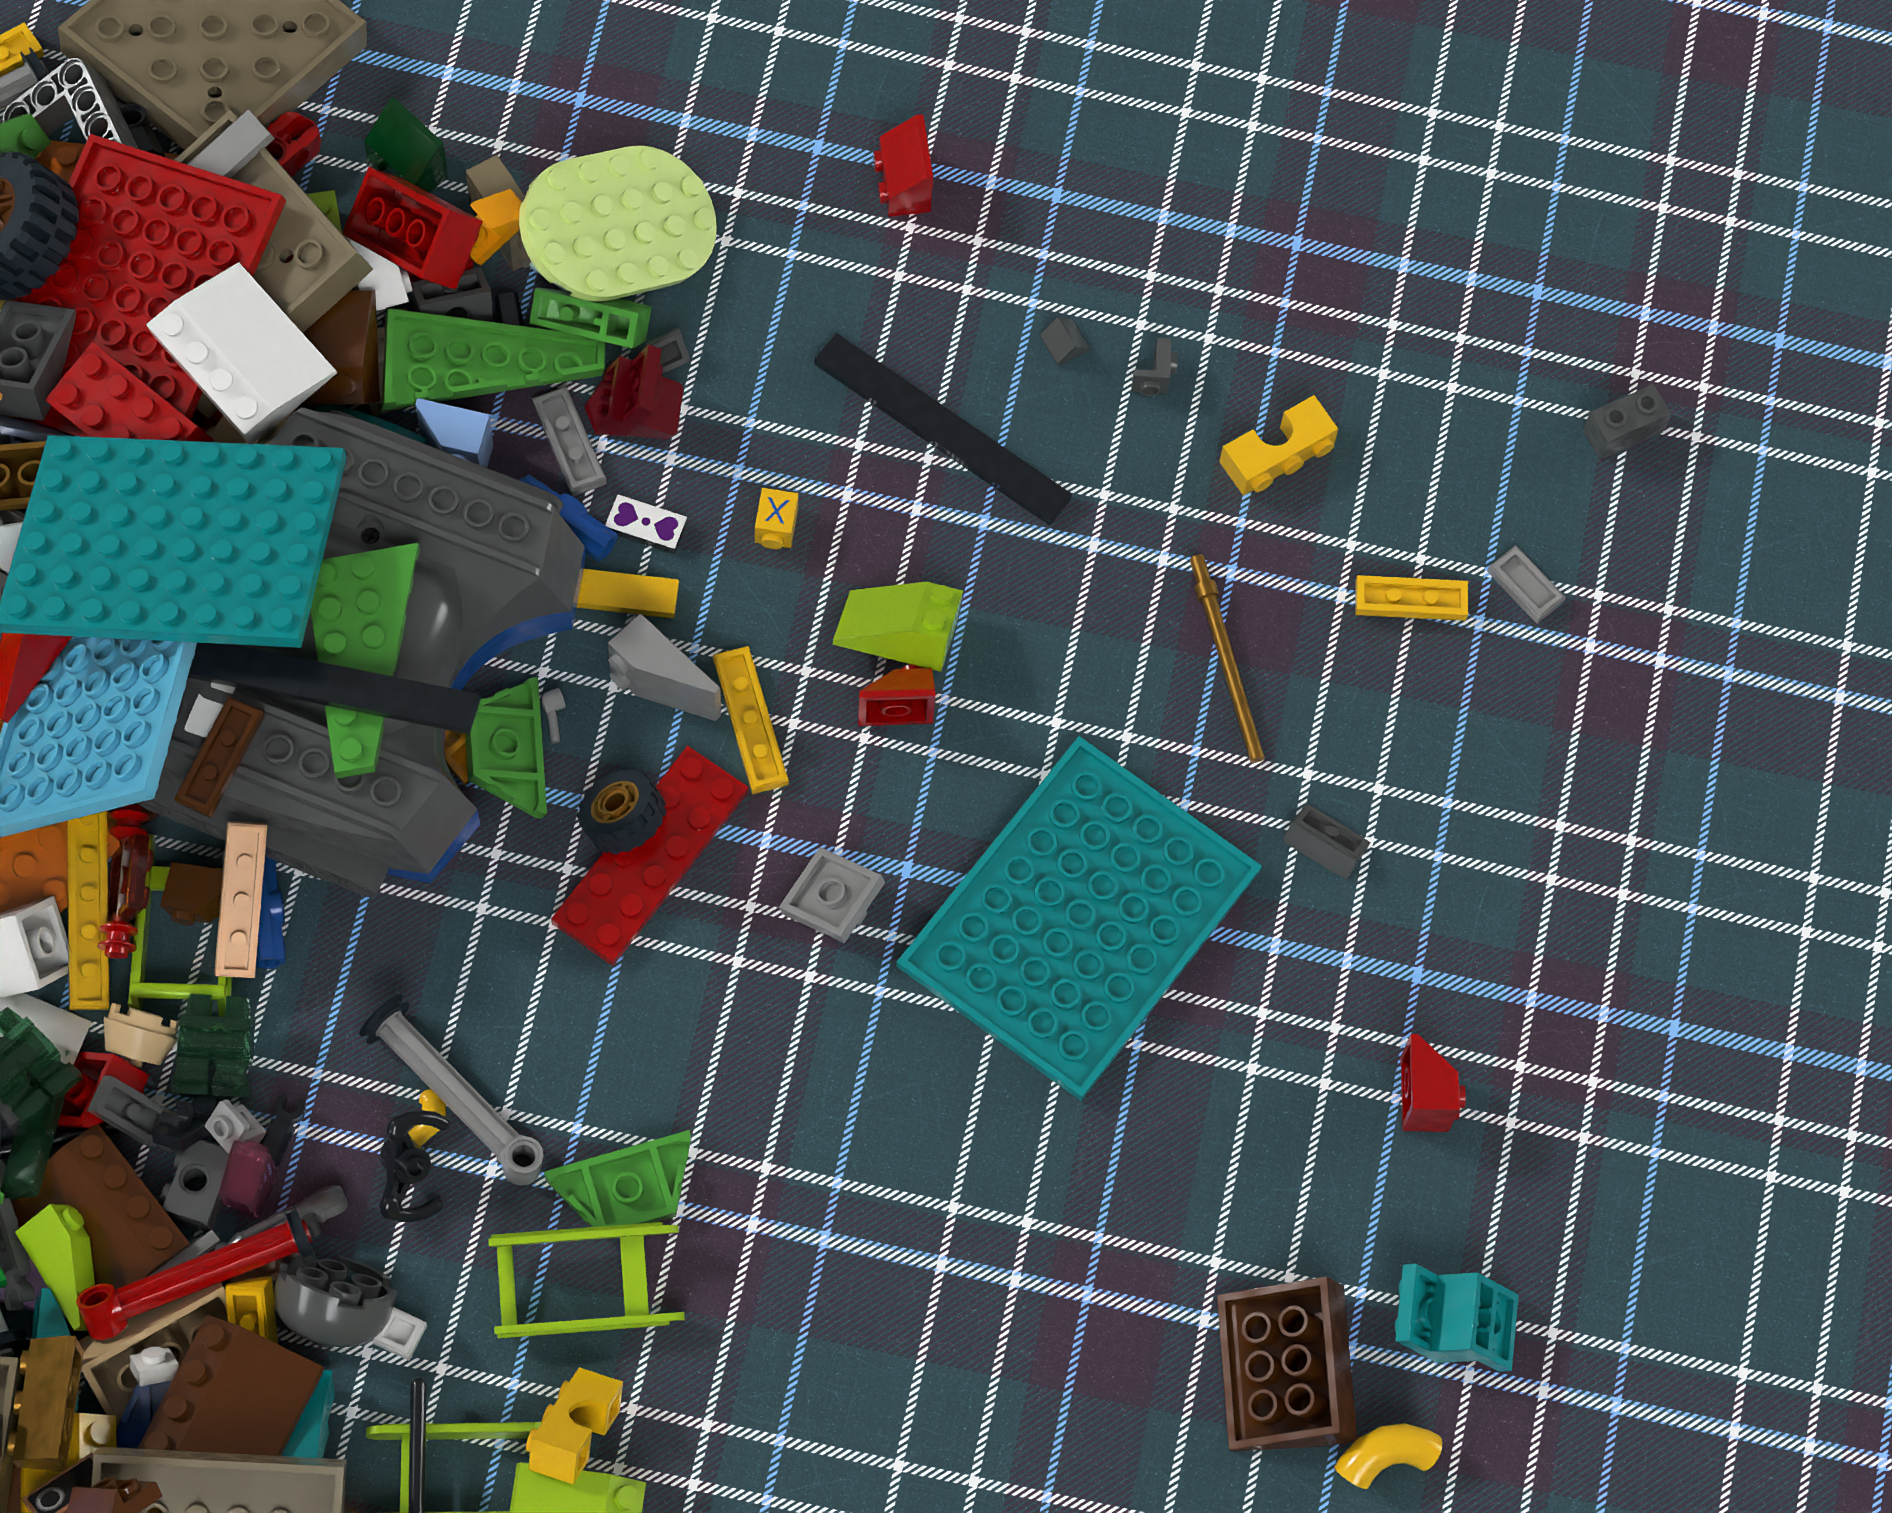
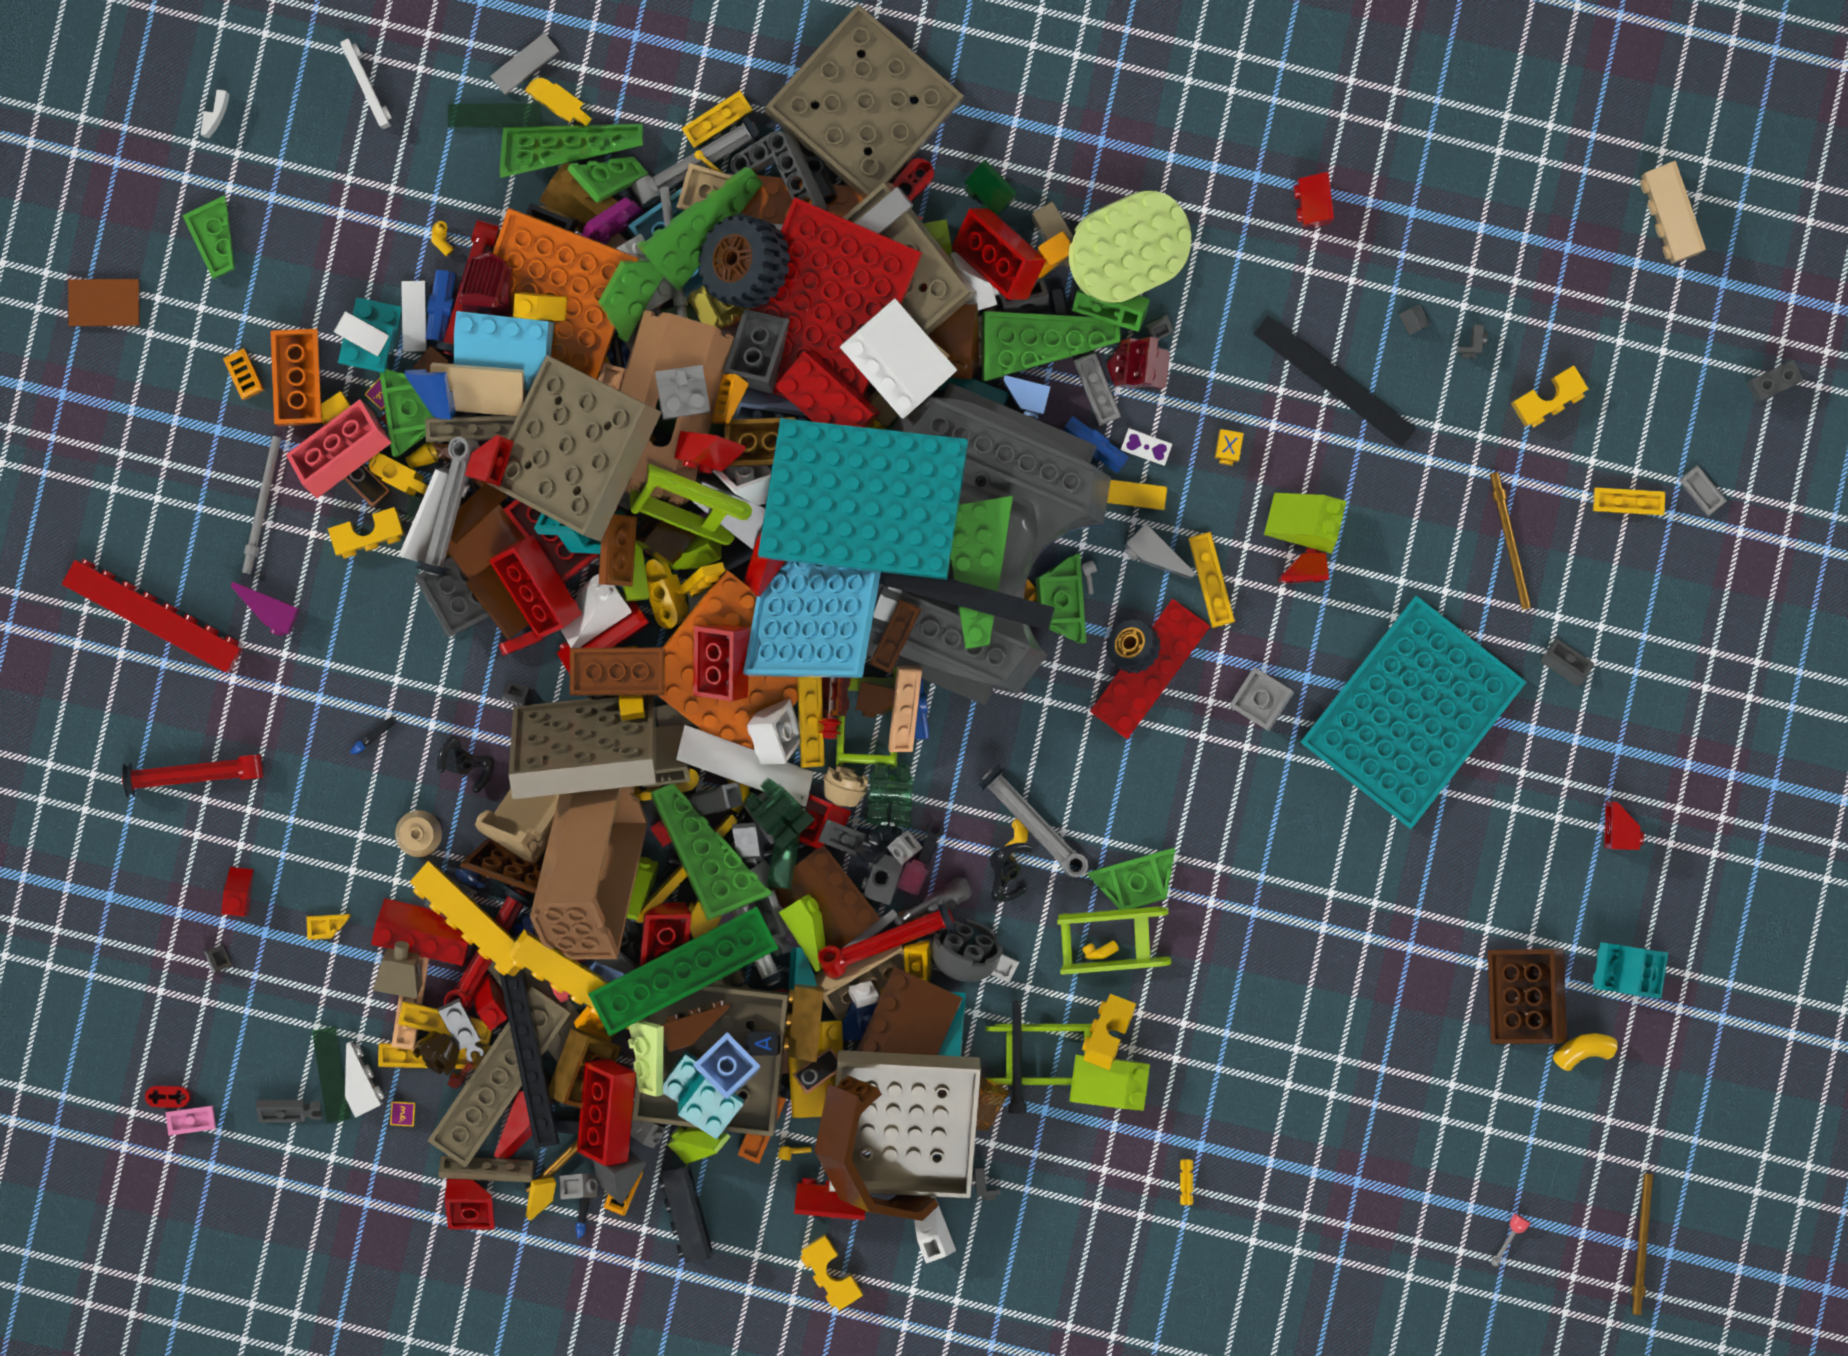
camera: 10 degrees right, 20 degrees up
(566, 1304) = (1100, 953): none -> yellow arm
(1454, 185) = (1672, 212): none -> tan slope

